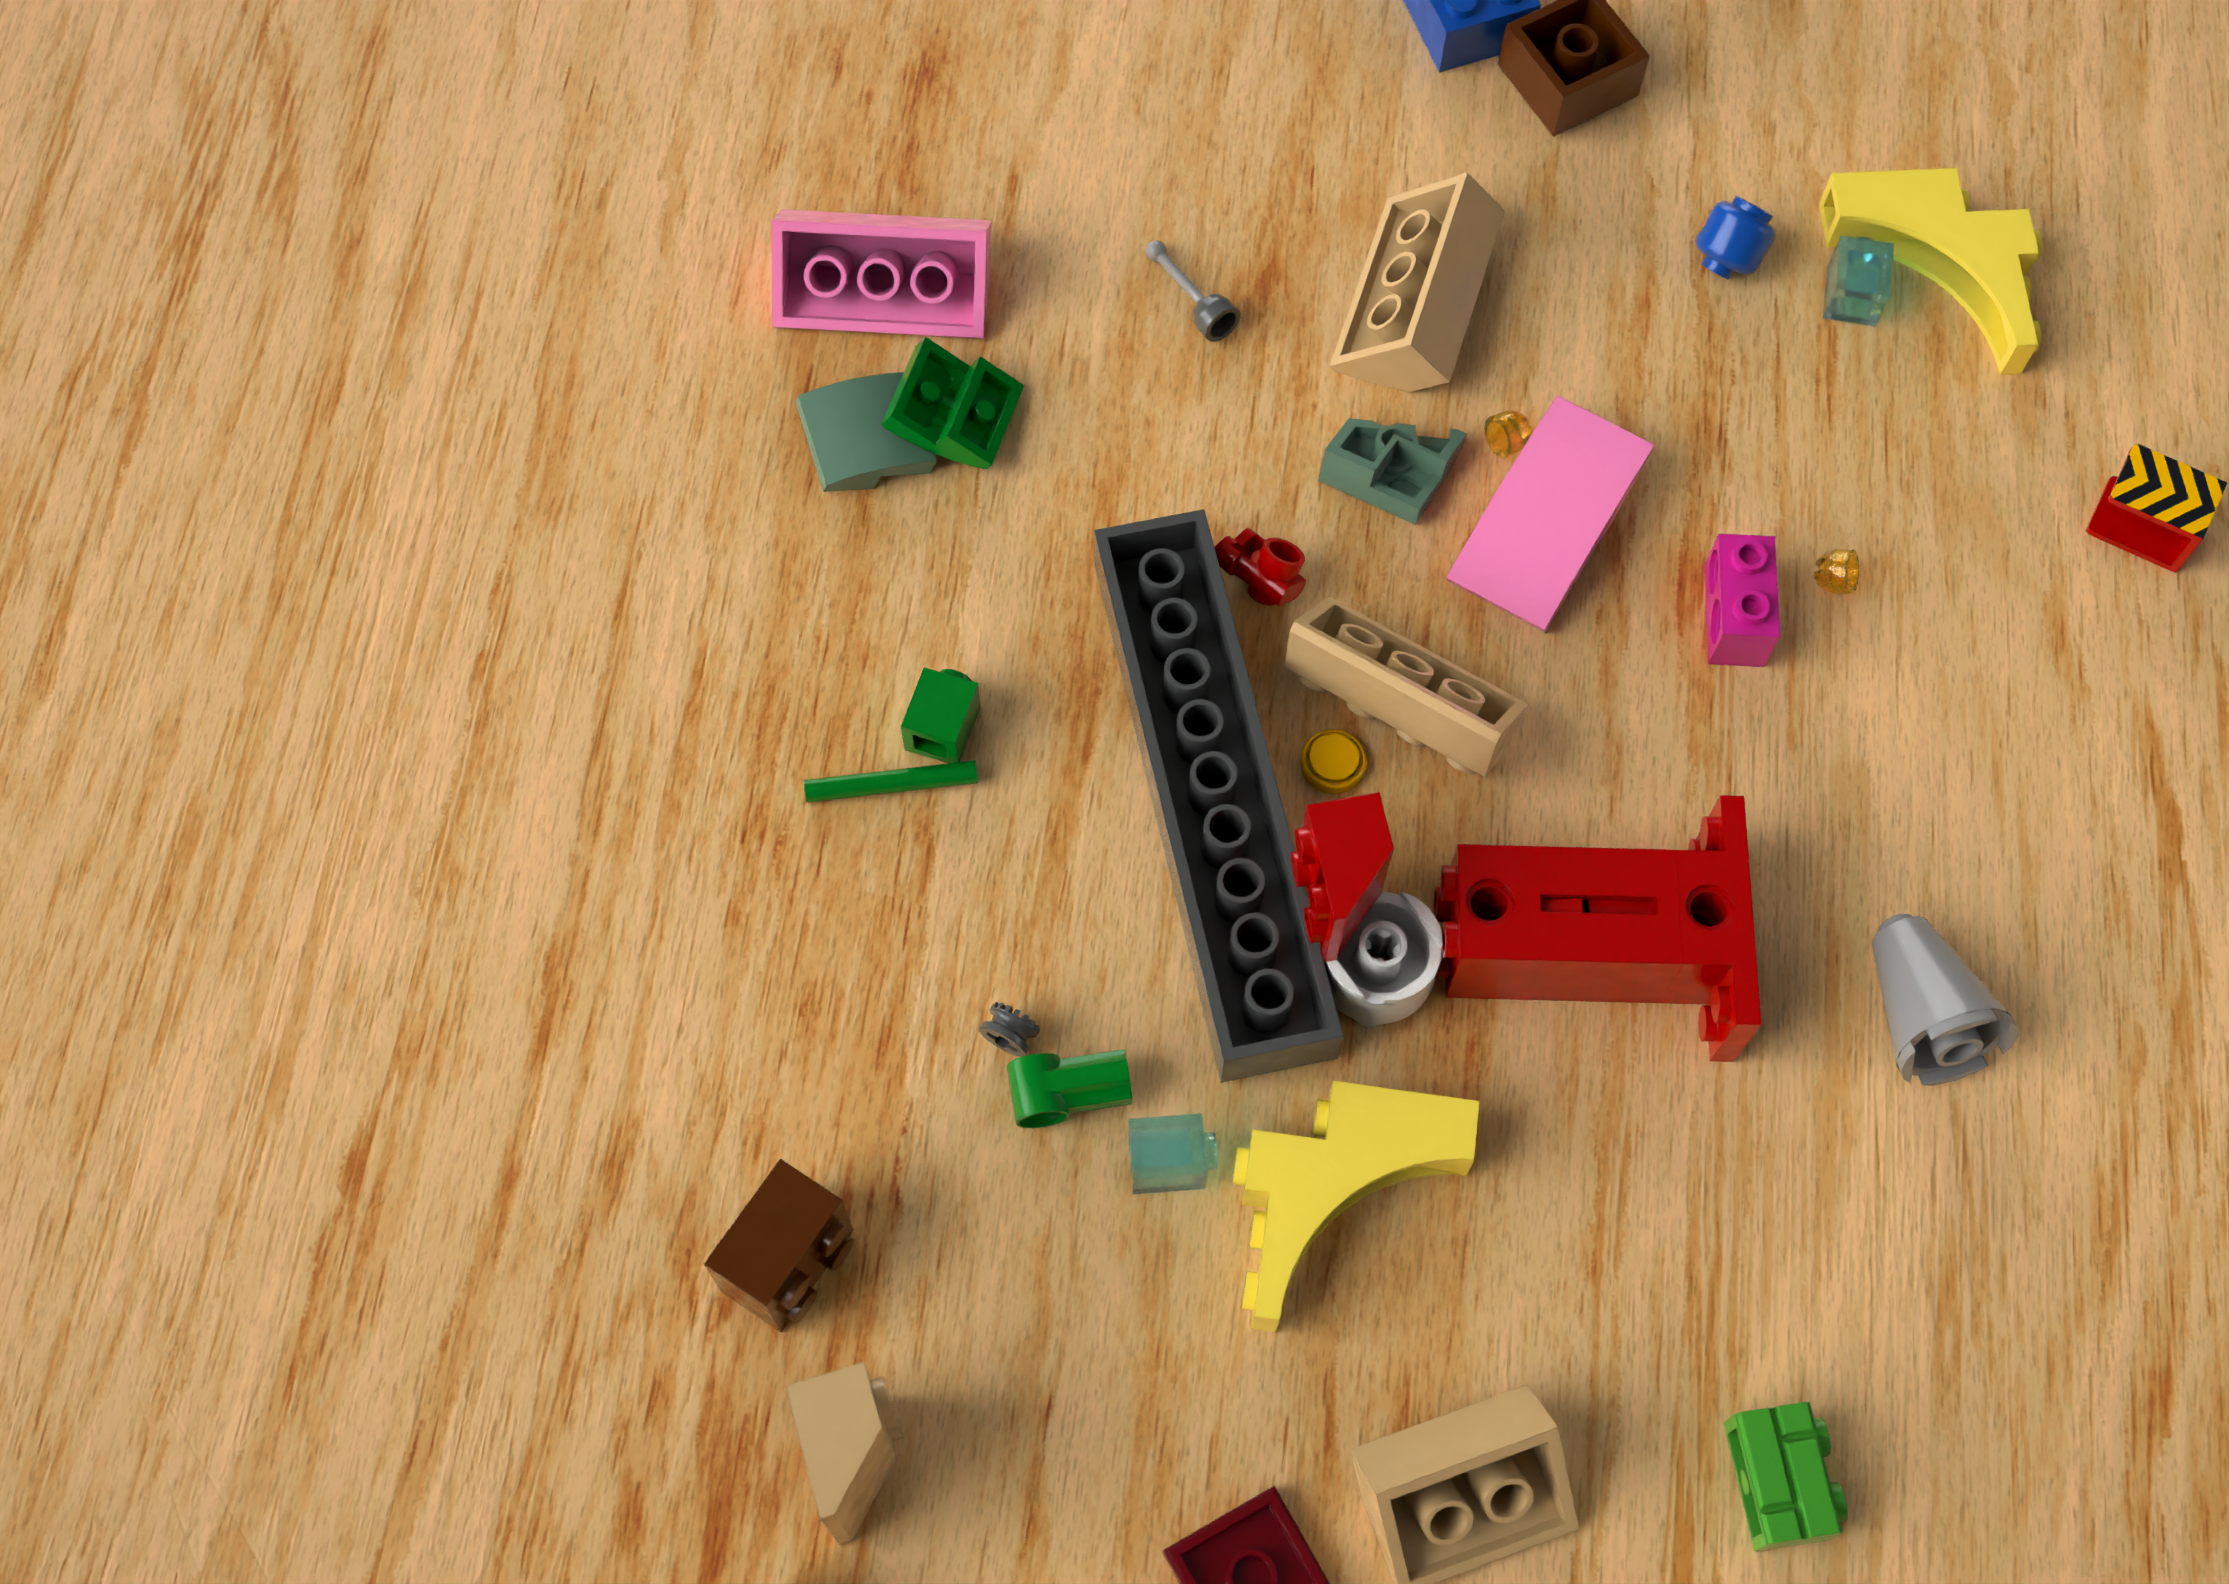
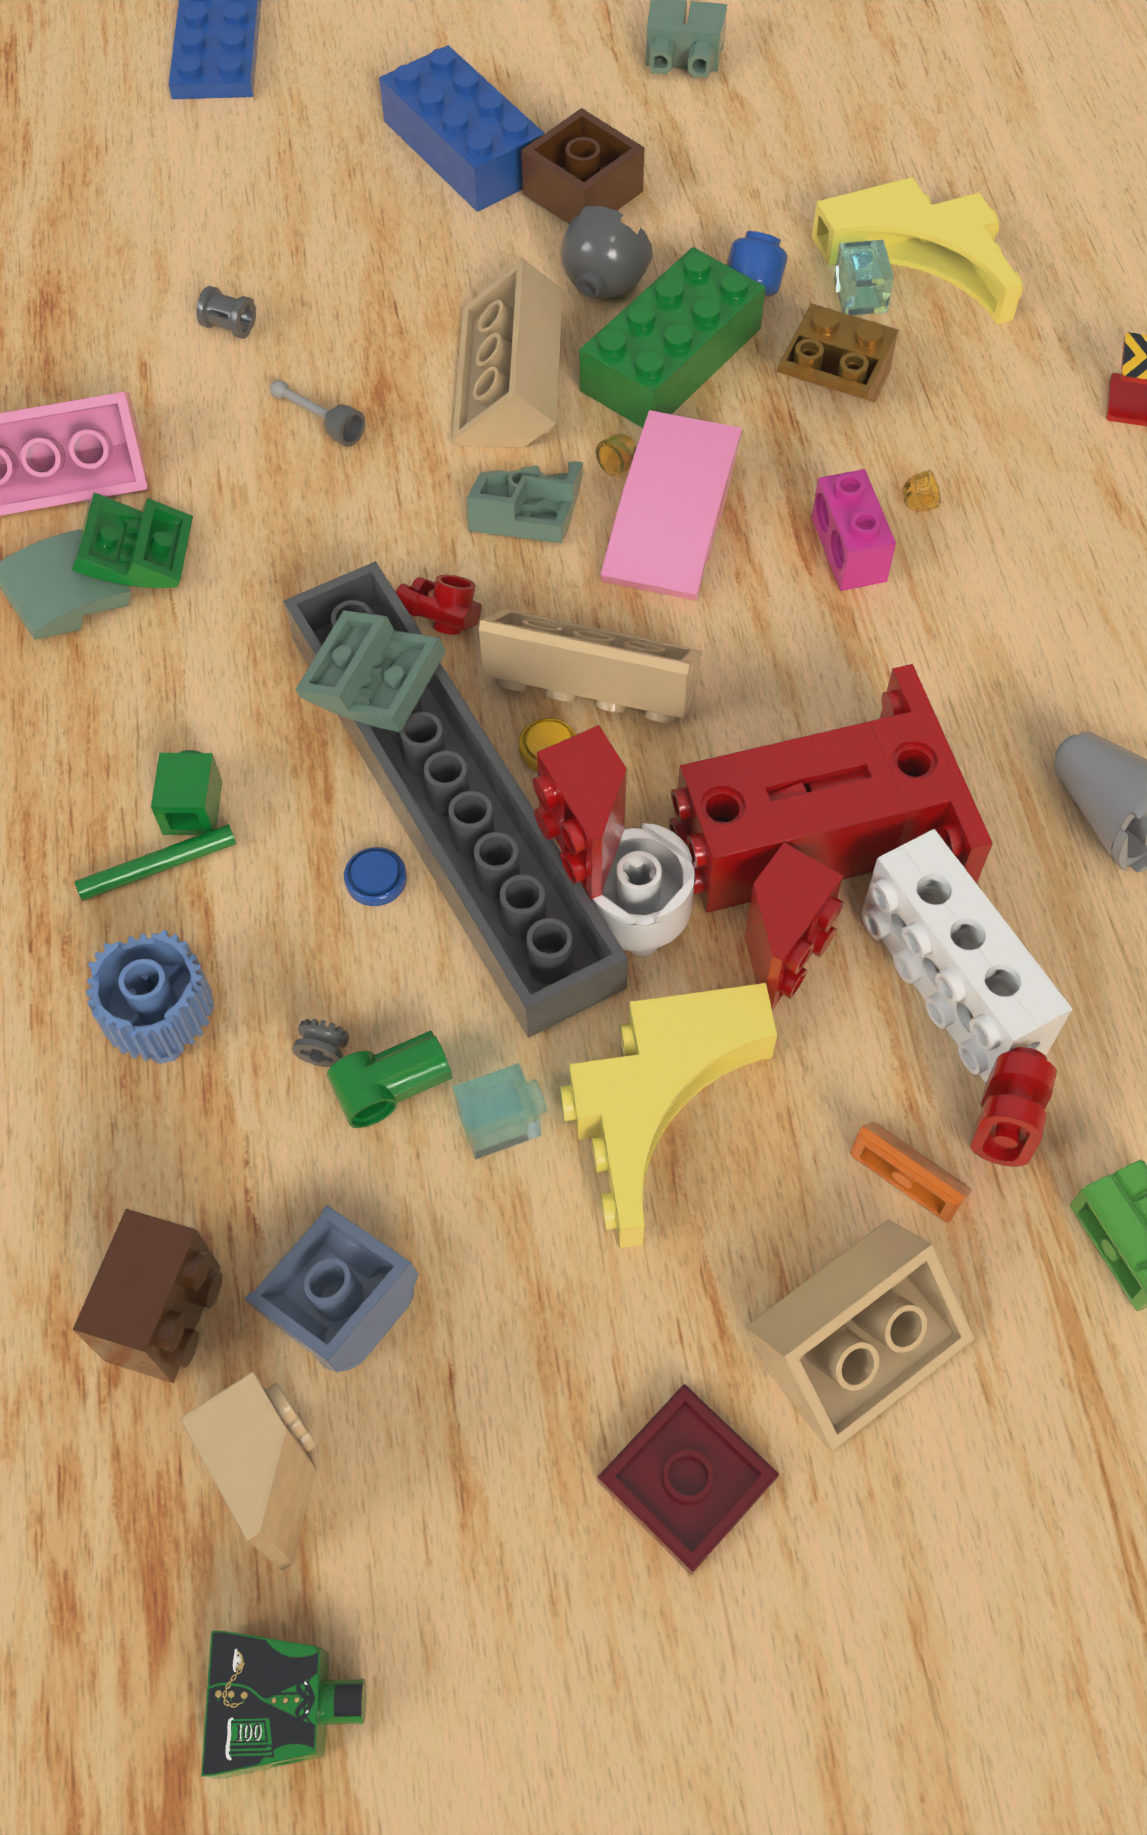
camera: 15 degrees left, 5 degrees down
(857, 962) = (149, 996): none -> medium blue brick
(960, 1292) = (336, 1291): none -> sand blue slope
(1111, 859) = (375, 876): none -> blue piece
(1121, 140) = (226, 312): none -> dark grey bush
(1165, 641) = (371, 671): none -> sand green slope
(1526, 1037) = (790, 919): none -> red slope
(1562, 181) = (604, 253): none -> dark grey cylinder
(1570, 1338) = (909, 1171): none -> orange slope
(1612, 304) = (671, 337): none -> green brick
(1693, 1134) = (960, 954): none -> white brick
(1694, 1308) = (1014, 1107): none -> red brick
(1795, 379) = (840, 352): none -> pearl gold slope

